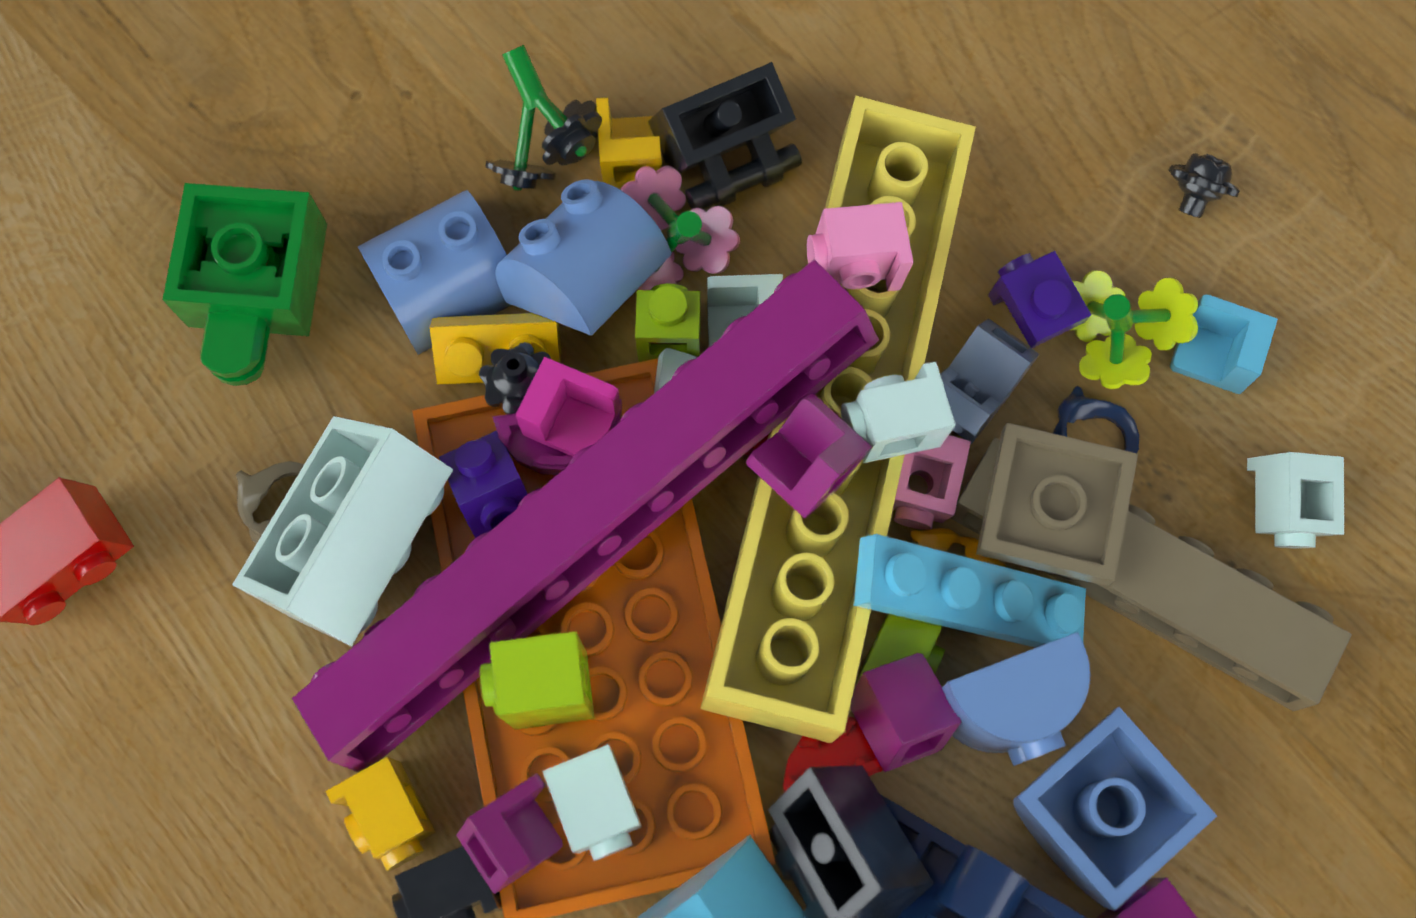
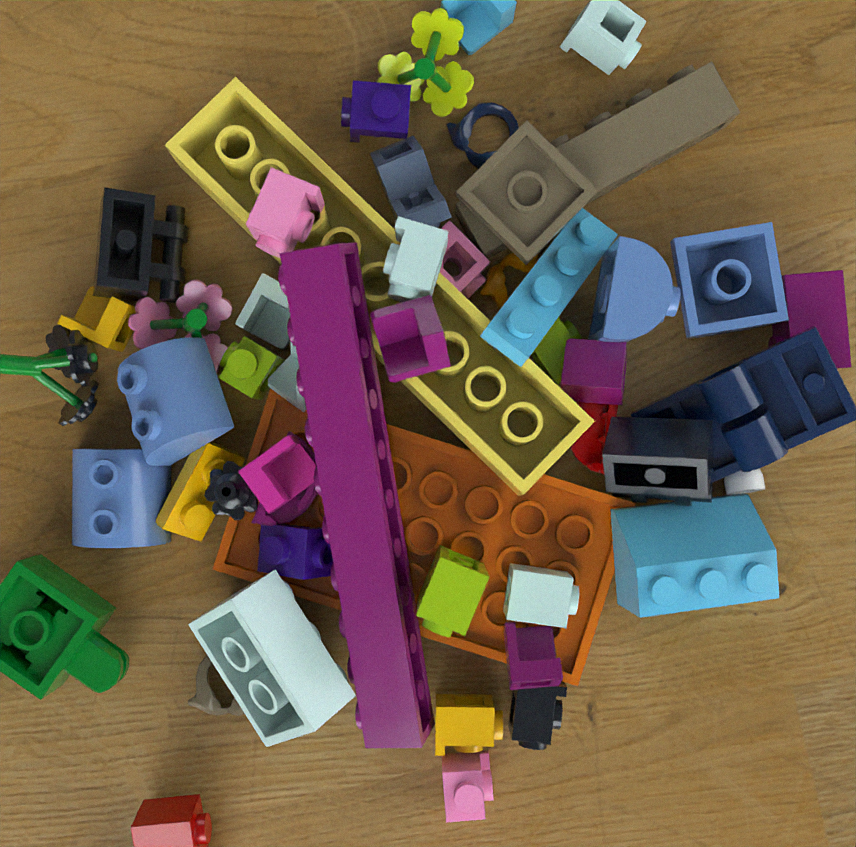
camera: 60 degrees left, 15 degrees up
(306, 858) = (466, 785): none -> bright pink brick

